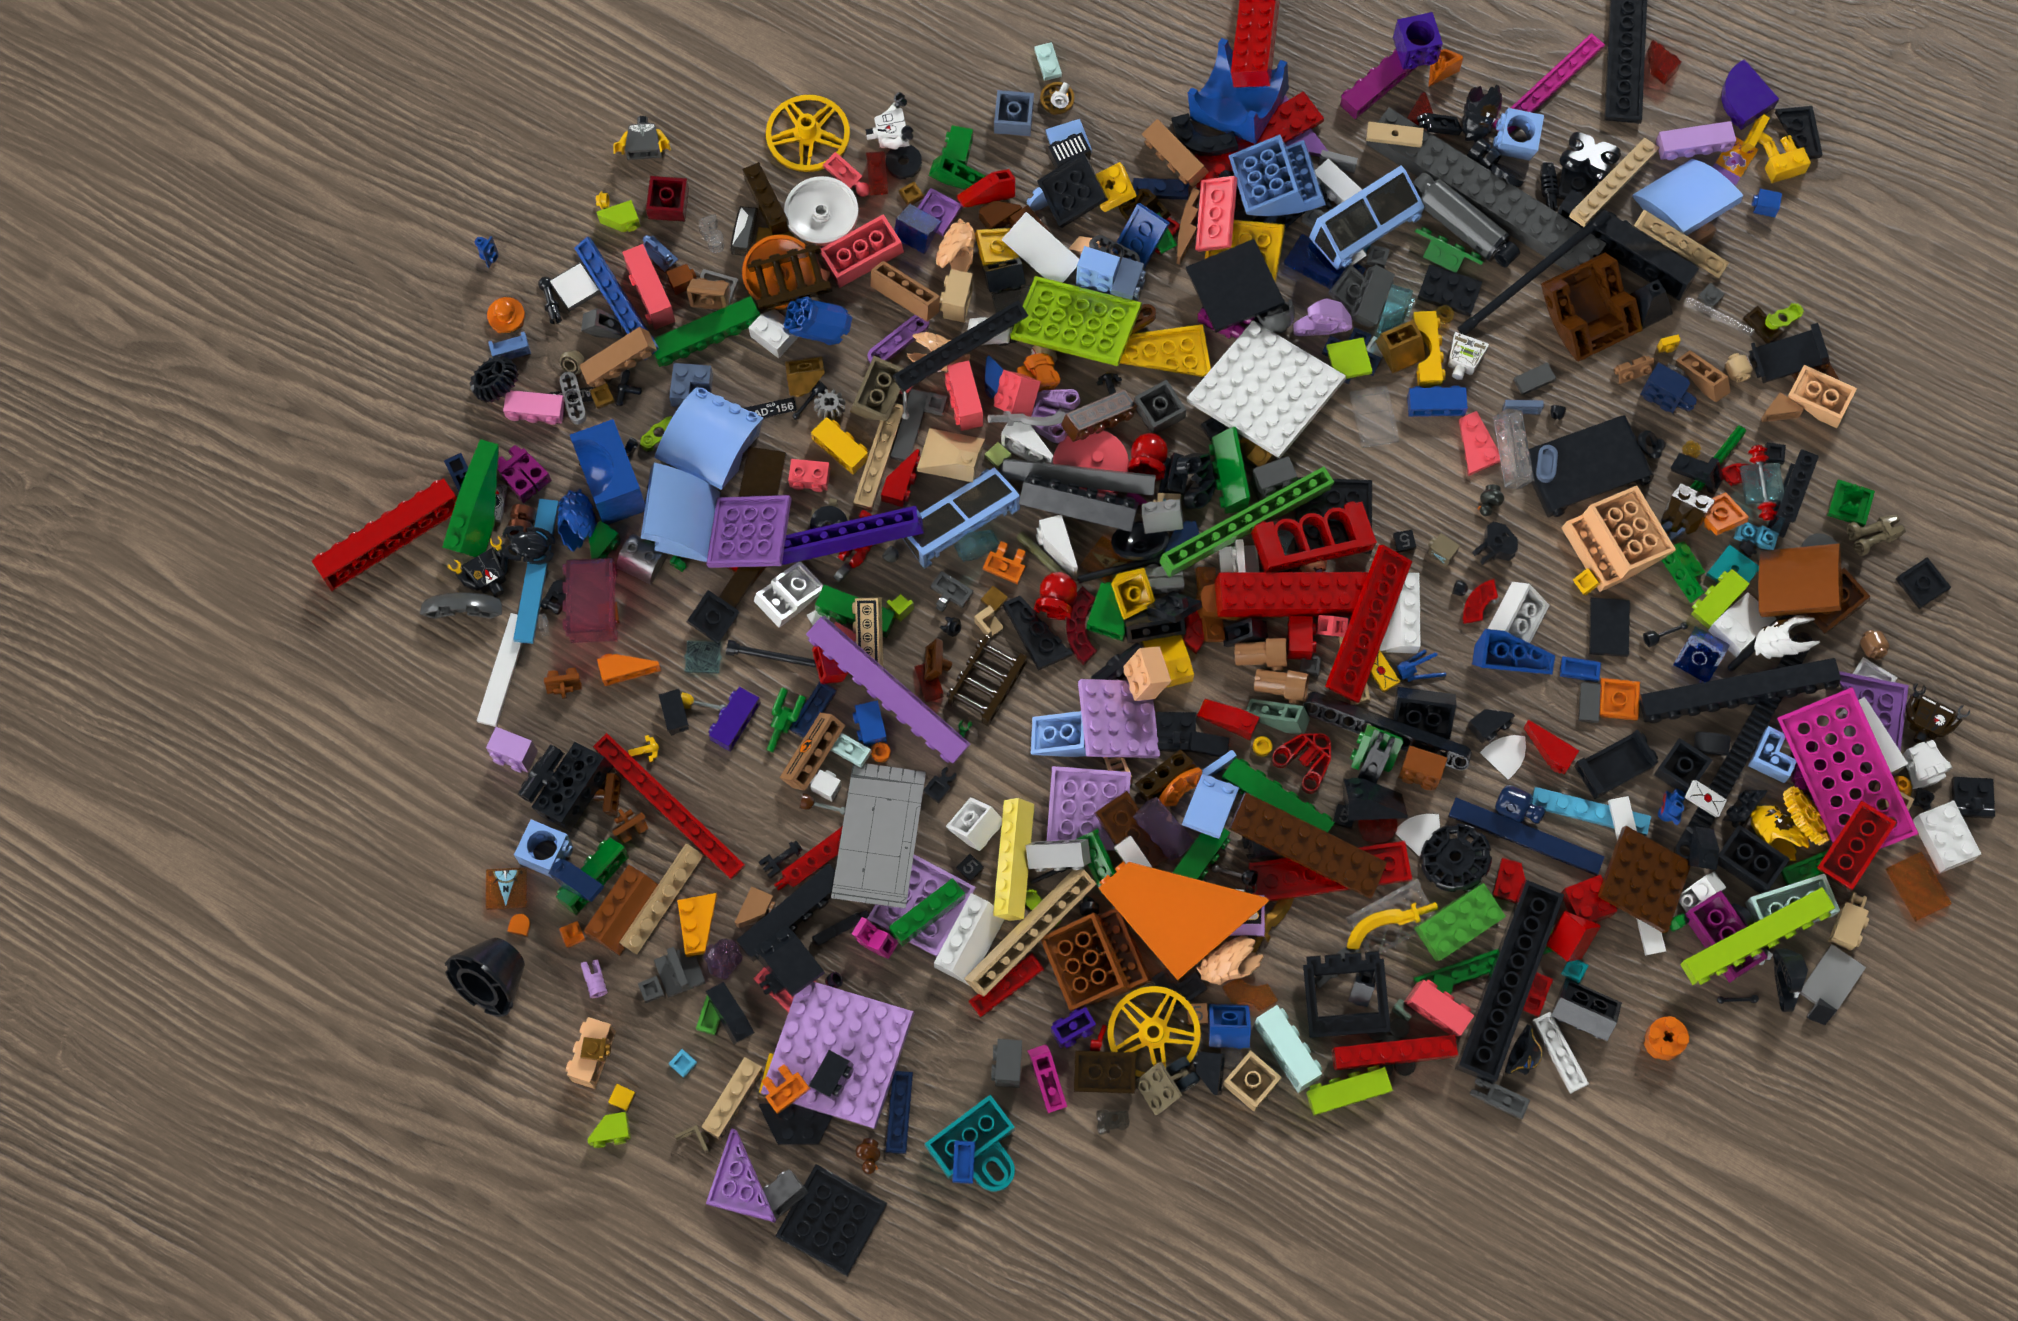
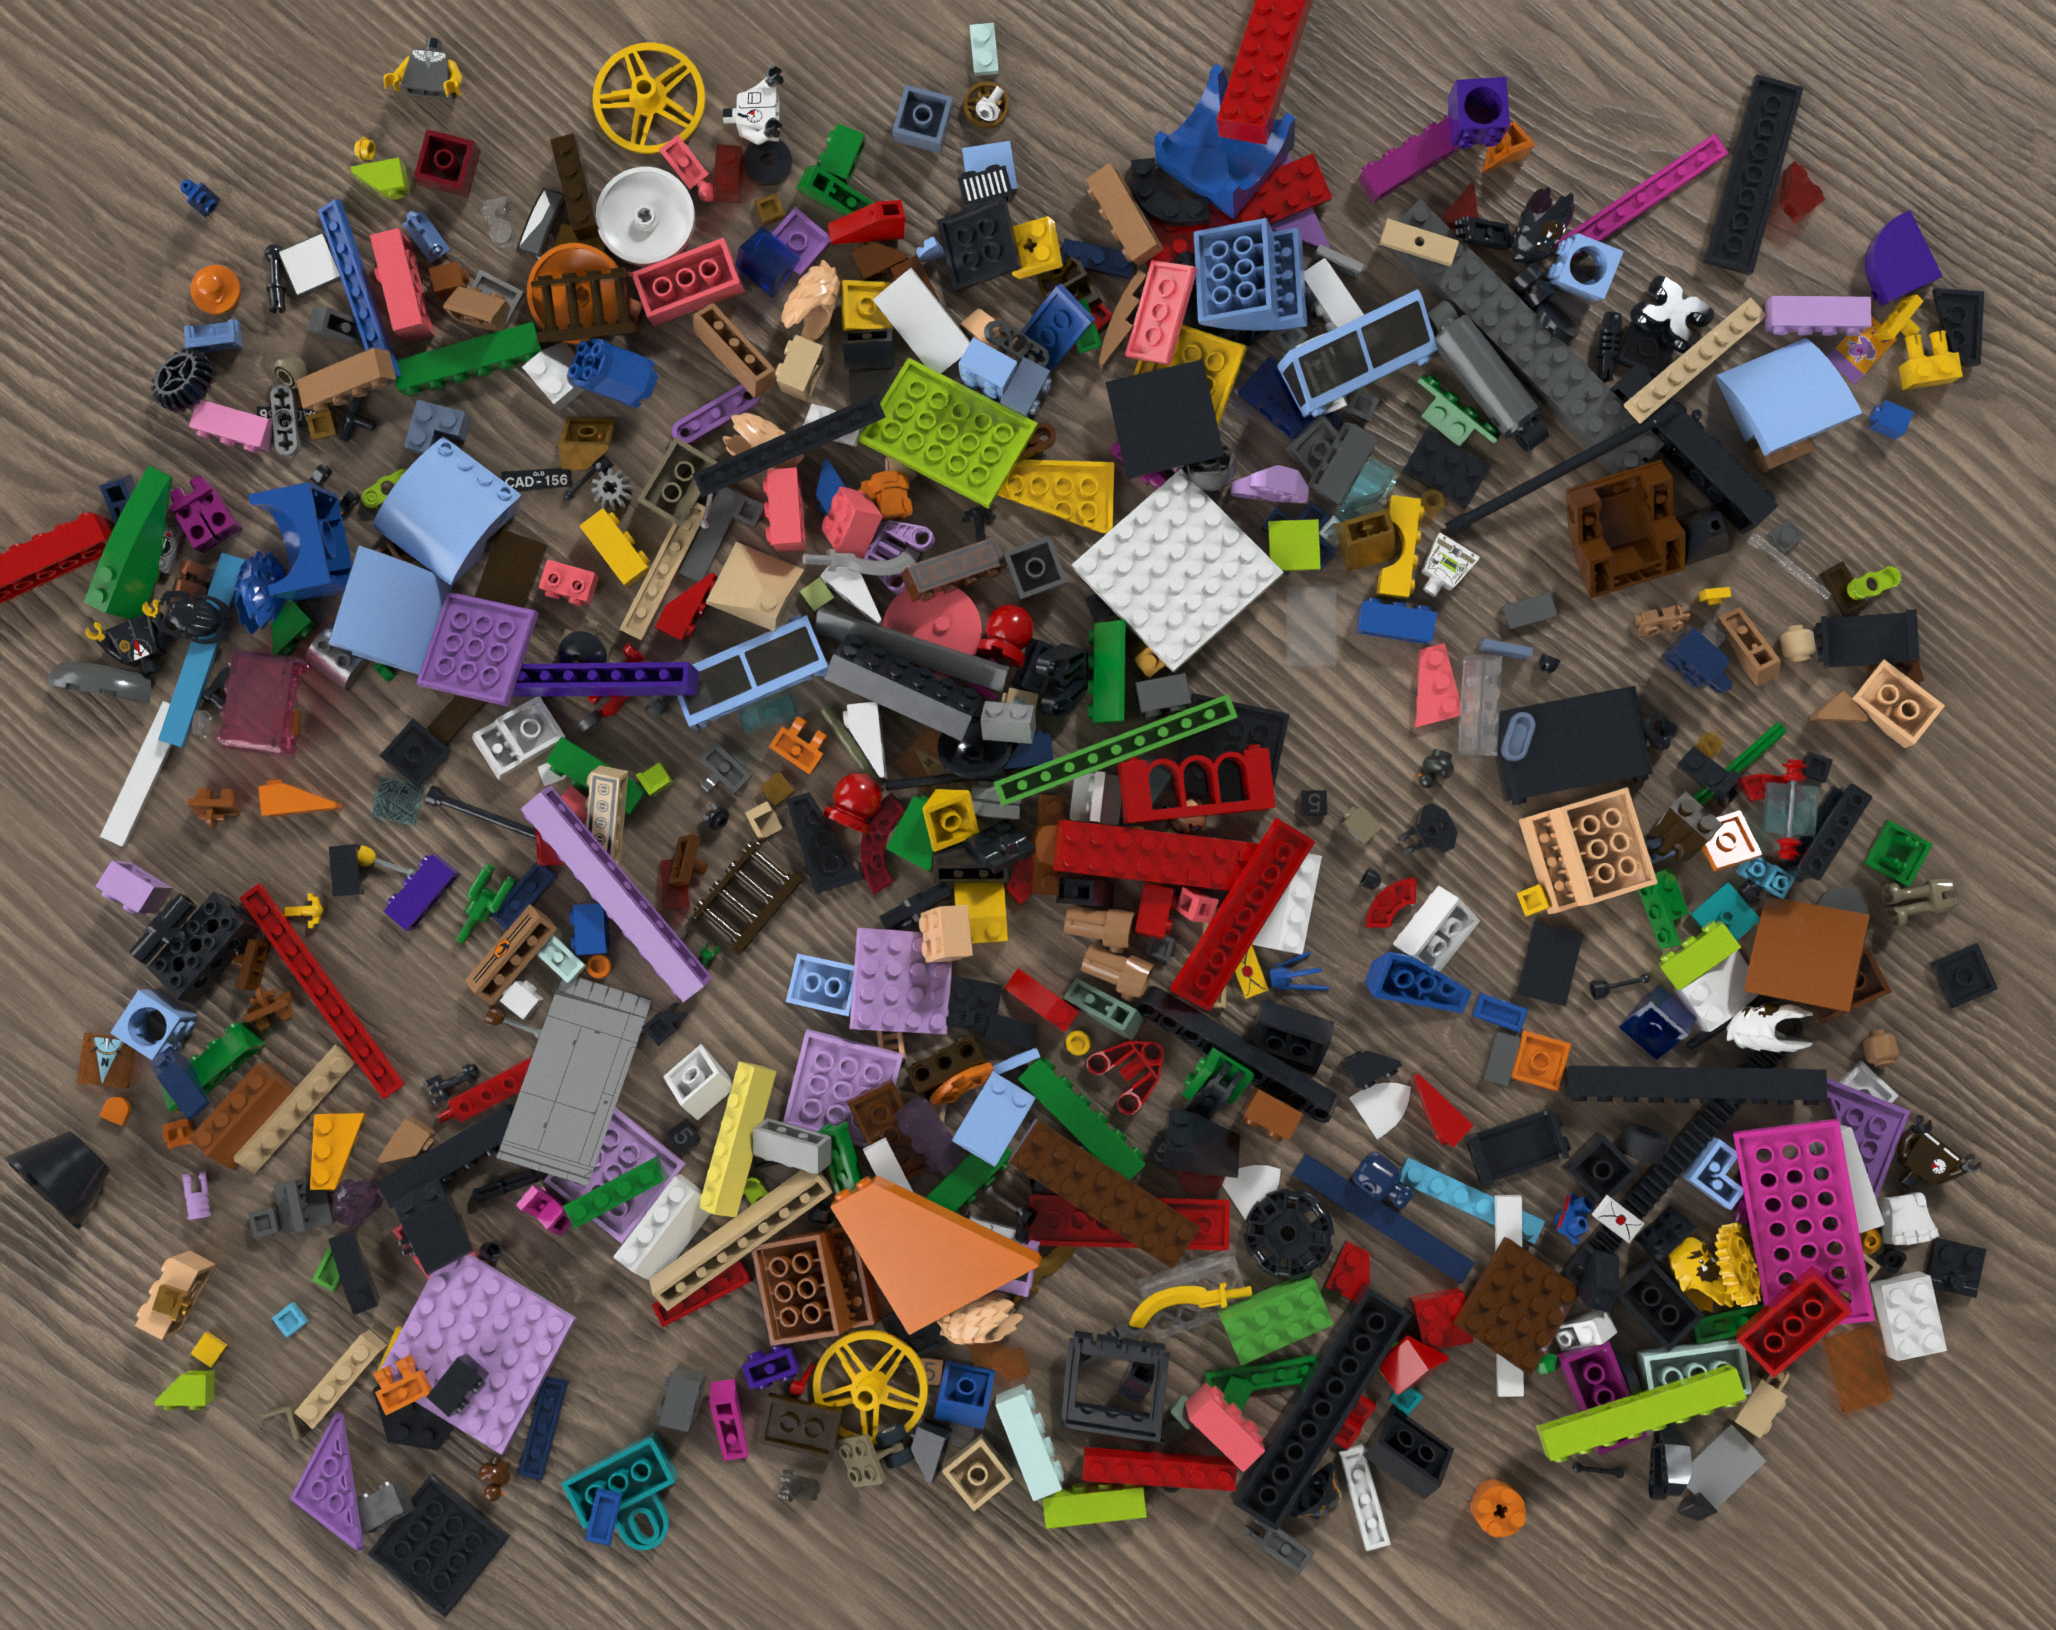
camera: 10 degrees right, 15 degrees up
(1681, 243) = (1763, 465): tan plate -> none

